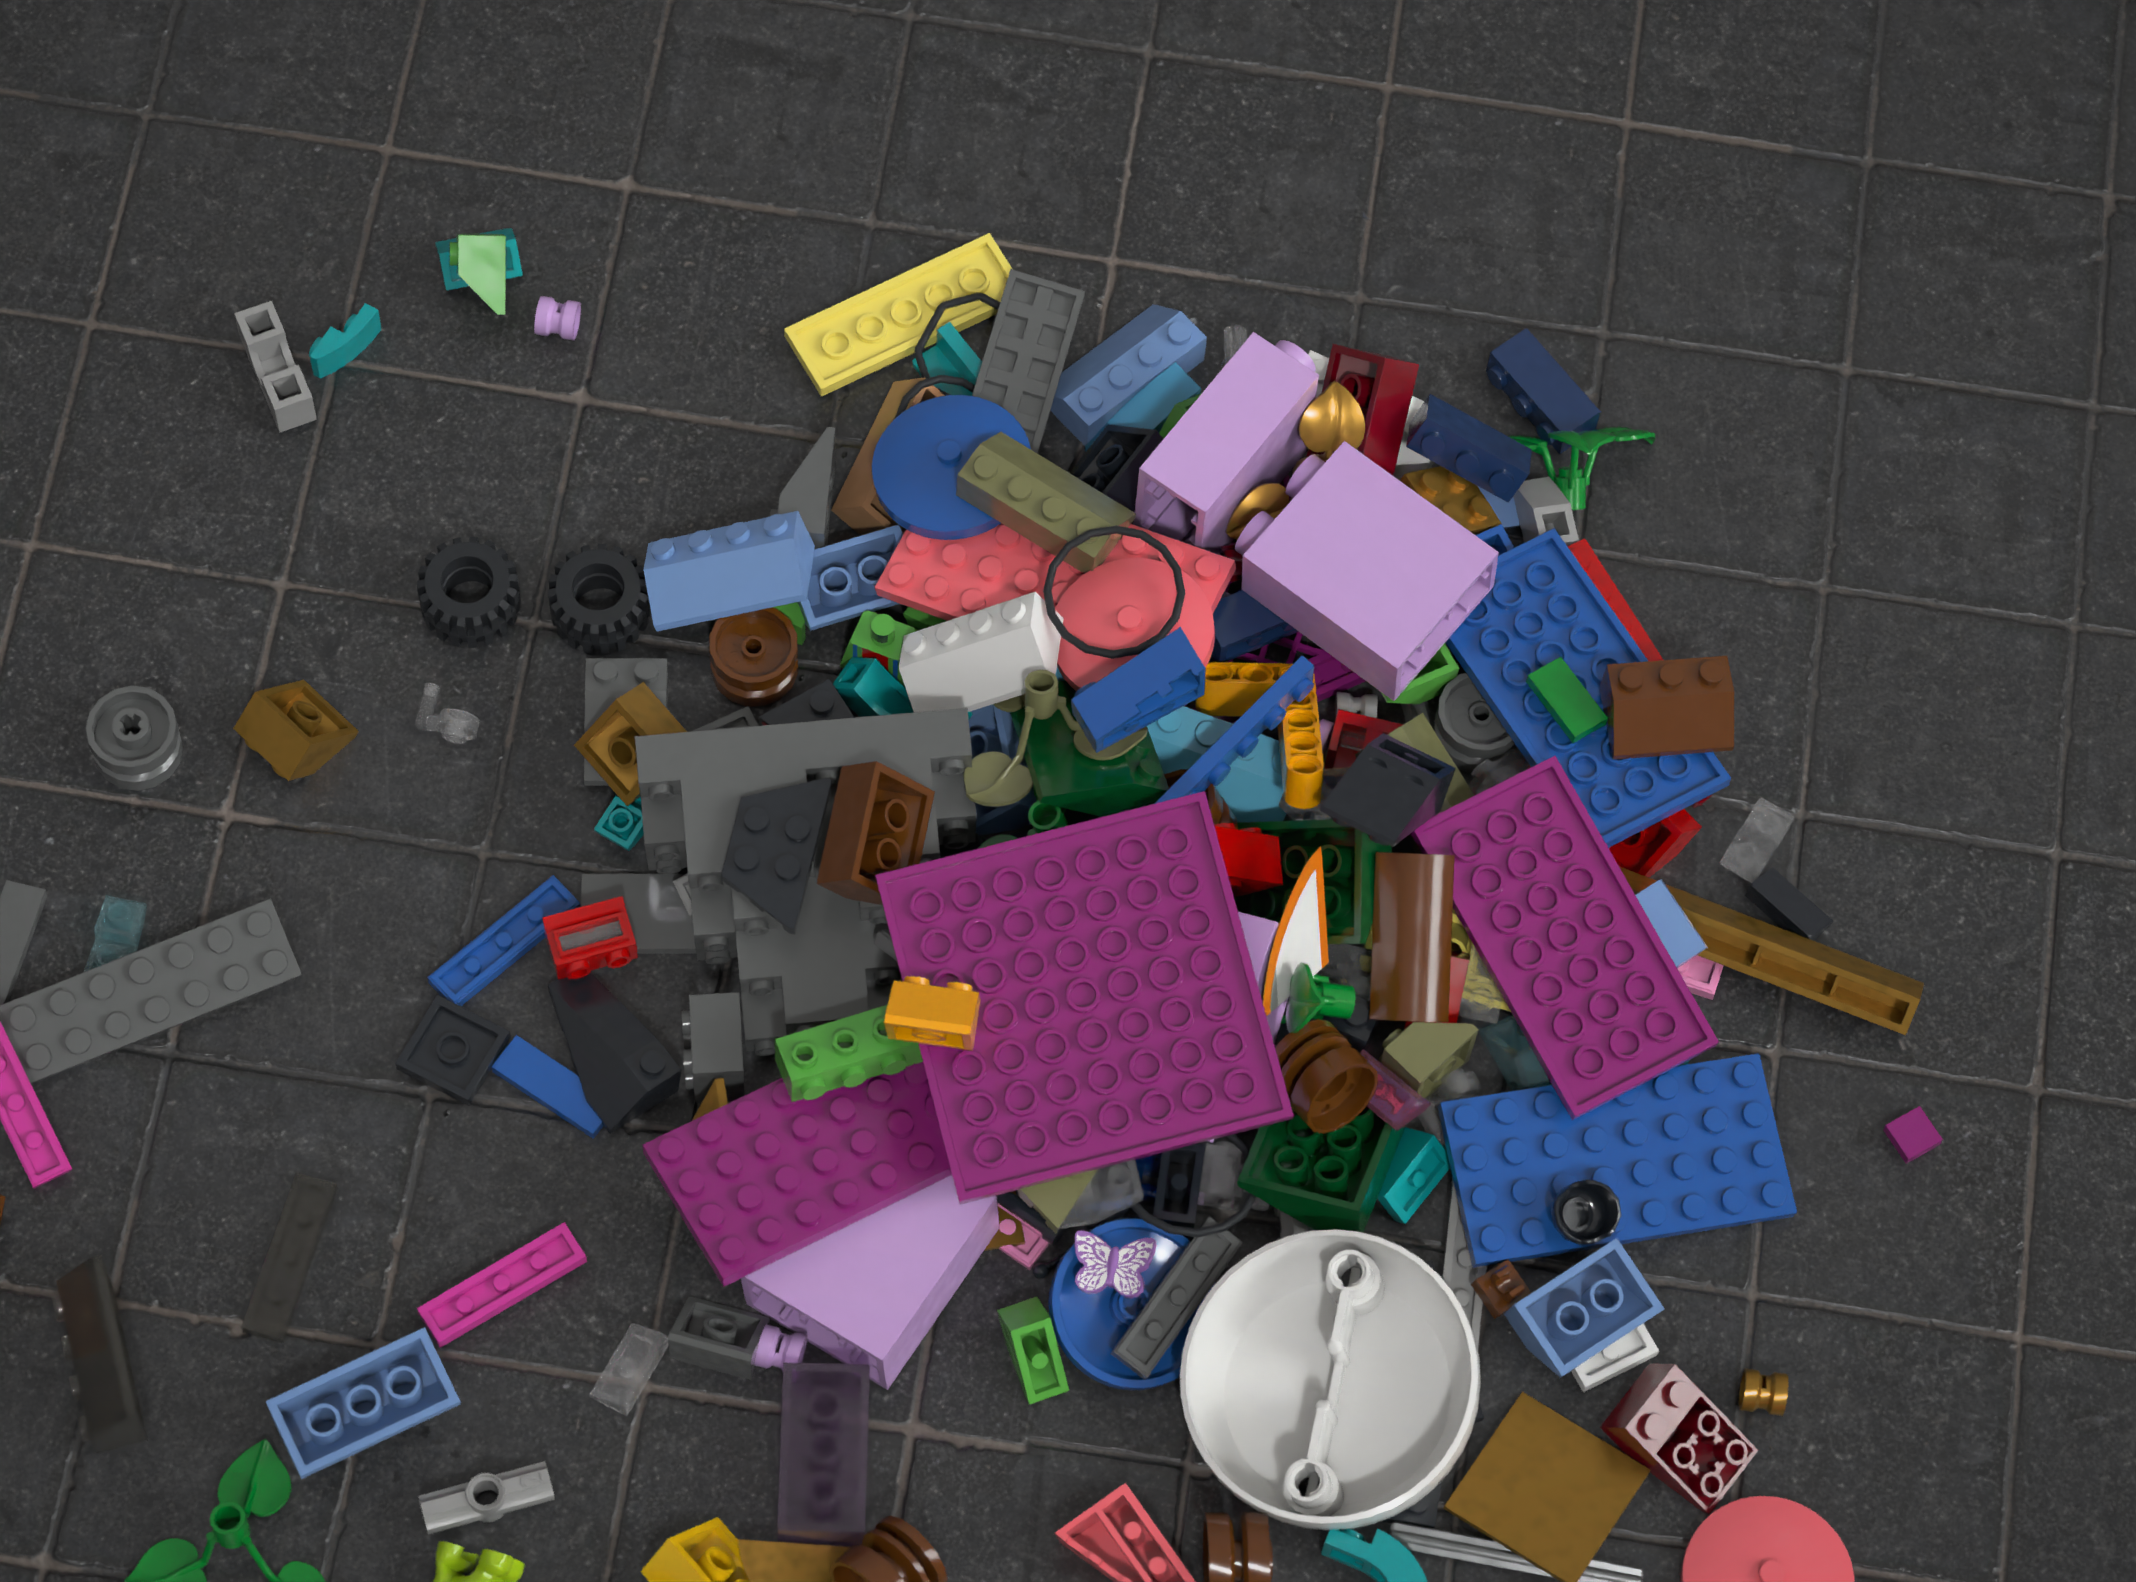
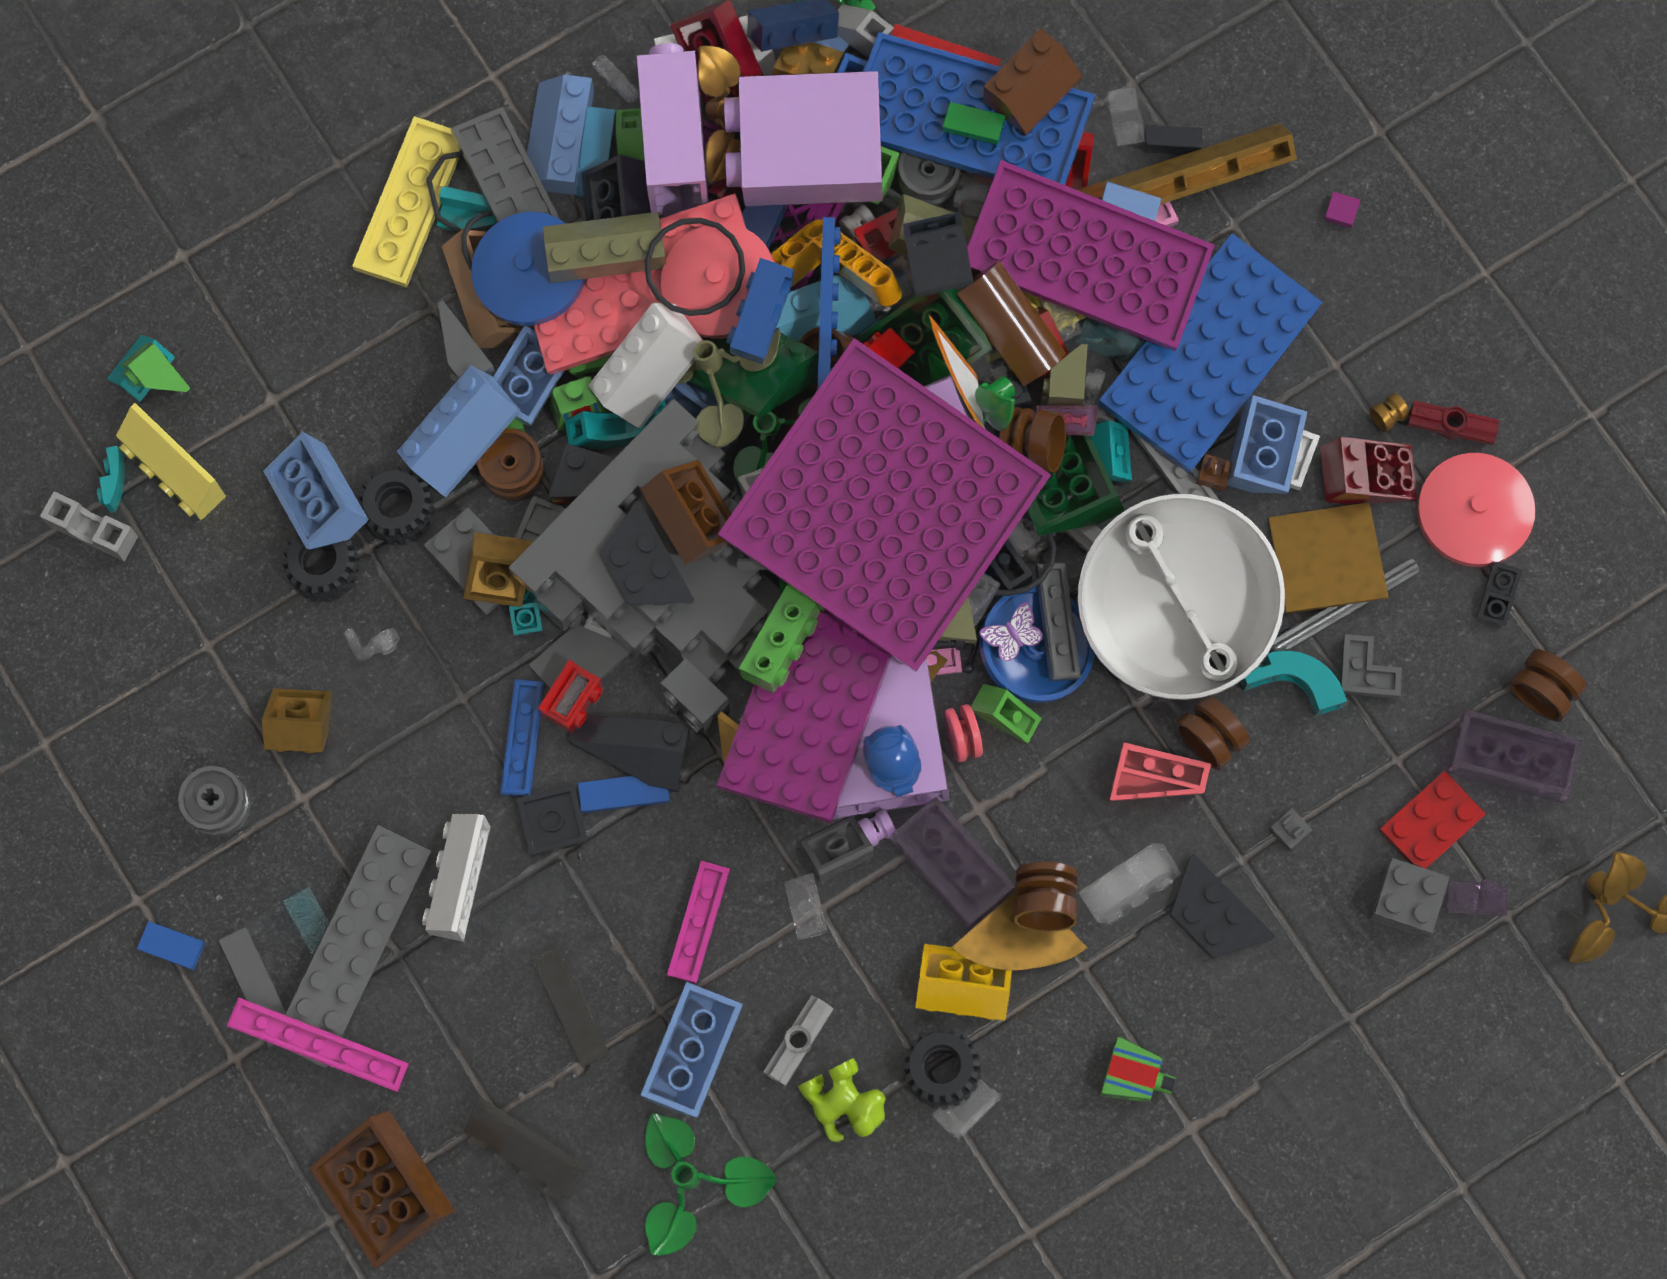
camera: 35 degrees left, 10 degrees up
(301, 1022) = (457, 876): none -> white slope
(412, 370) = (169, 463): none -> light yellow slope
(526, 516) = (315, 493): none -> medium blue slope
(557, 318) = (219, 365): lavender wheel -> none
(850, 1267) = (892, 759): none -> blue helmet
(932, 1013) = (820, 582): light orange slope -> none
(964, 1329) = (963, 733): none -> coral head
(1586, 1212) = (1227, 395): black hair -> none
(1842, 1486) = (1434, 419): none -> dark red piece

